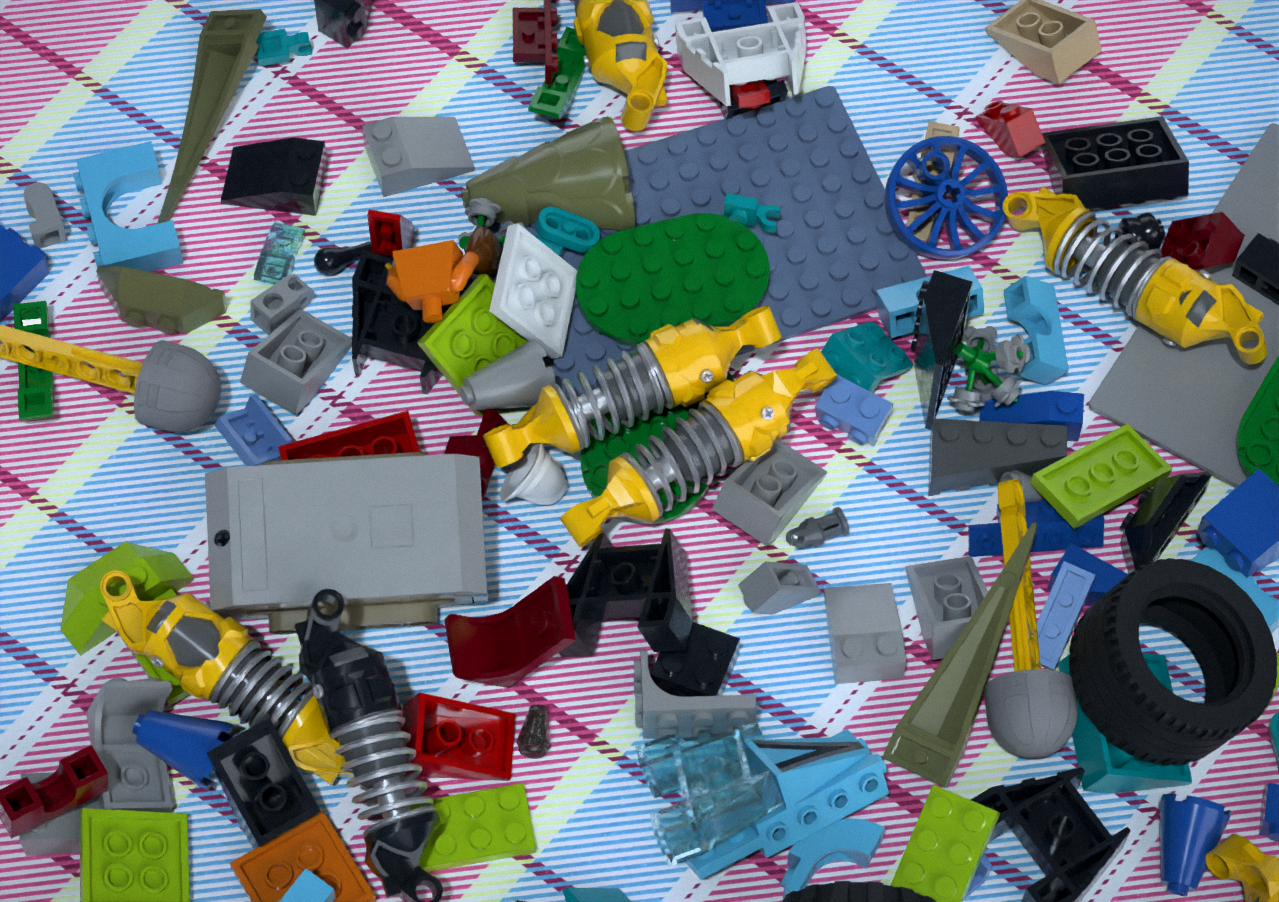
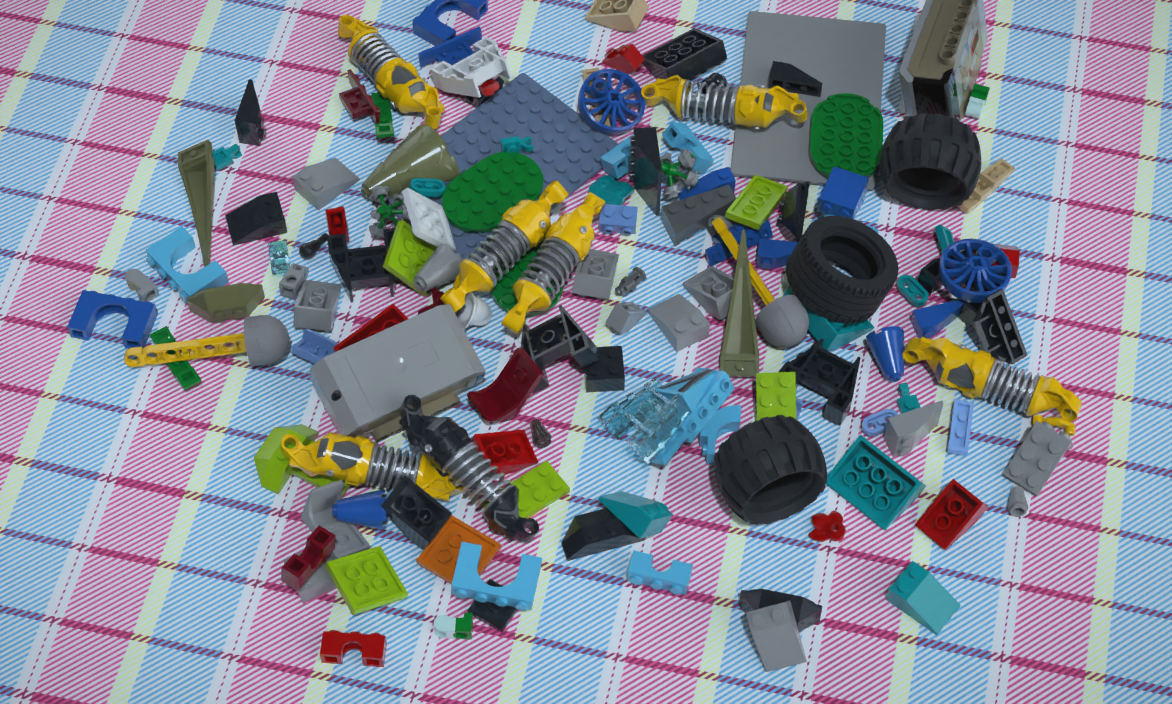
camera: 25 degrees left, 5 degrees down
(438, 271) = (376, 228): orange torso -> none
(670, 714) = (601, 395): light grey bracket -> none
(1062, 612) = (772, 269): light blue plate -> none
(1203, 241) = (748, 73): dark red slope -> none

